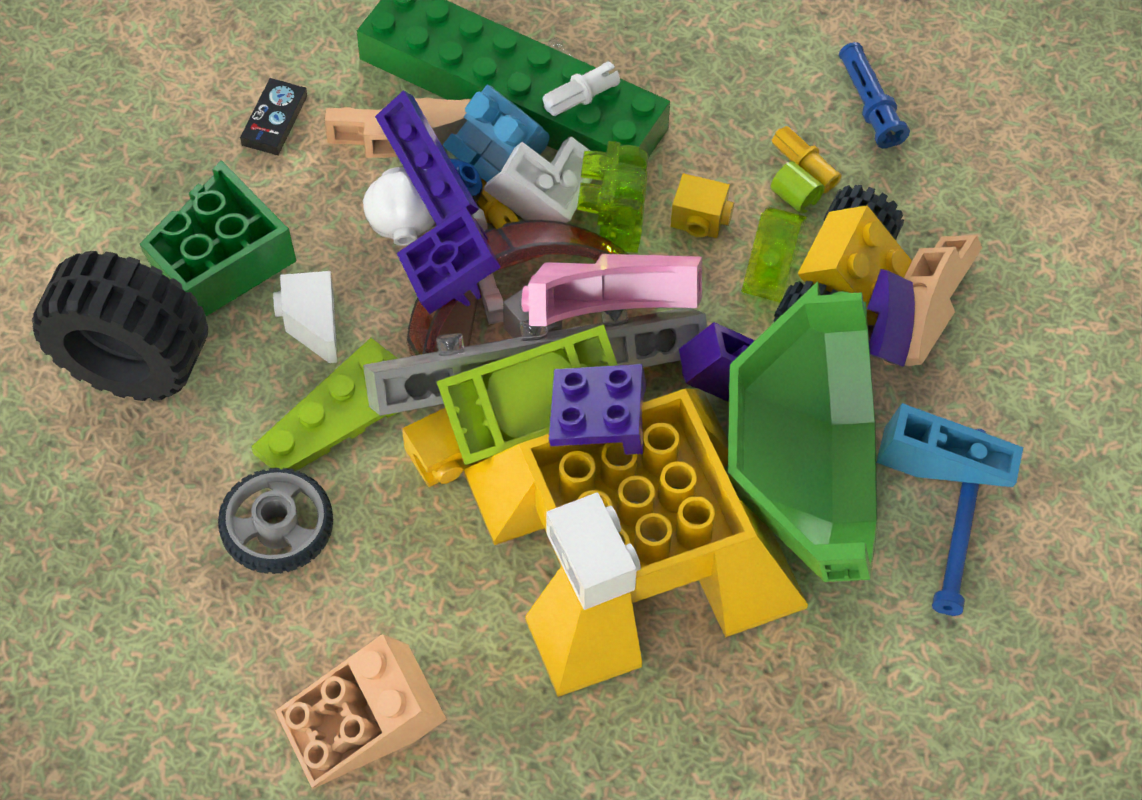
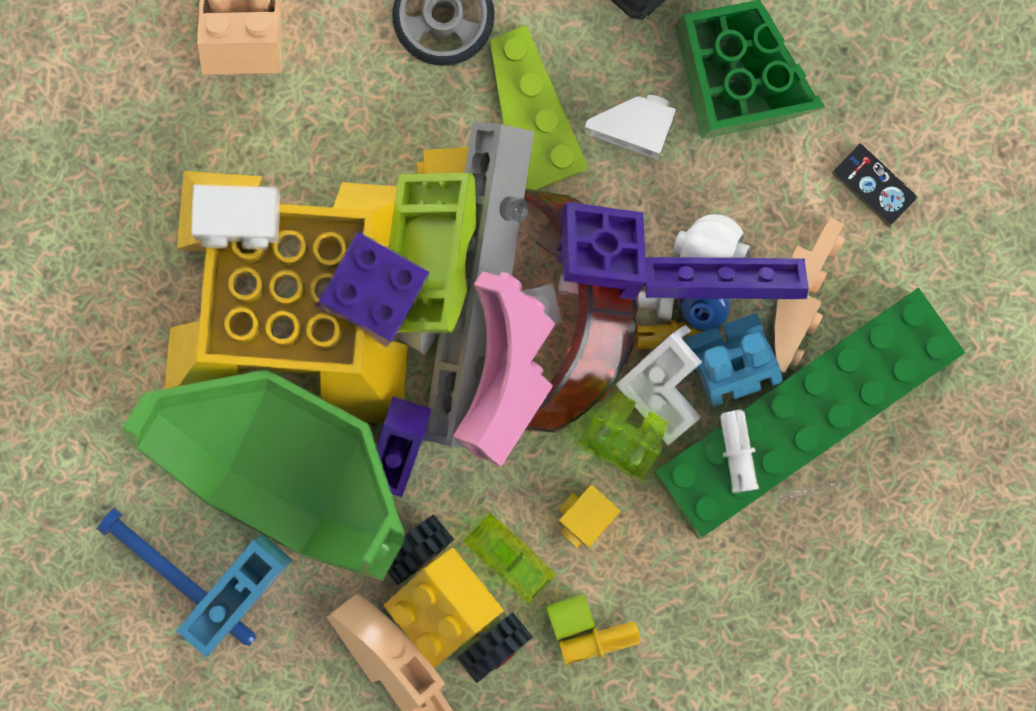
camera: 115 degrees right, 25 degrees up
(894, 326) = (377, 613): dark purple slope -> none

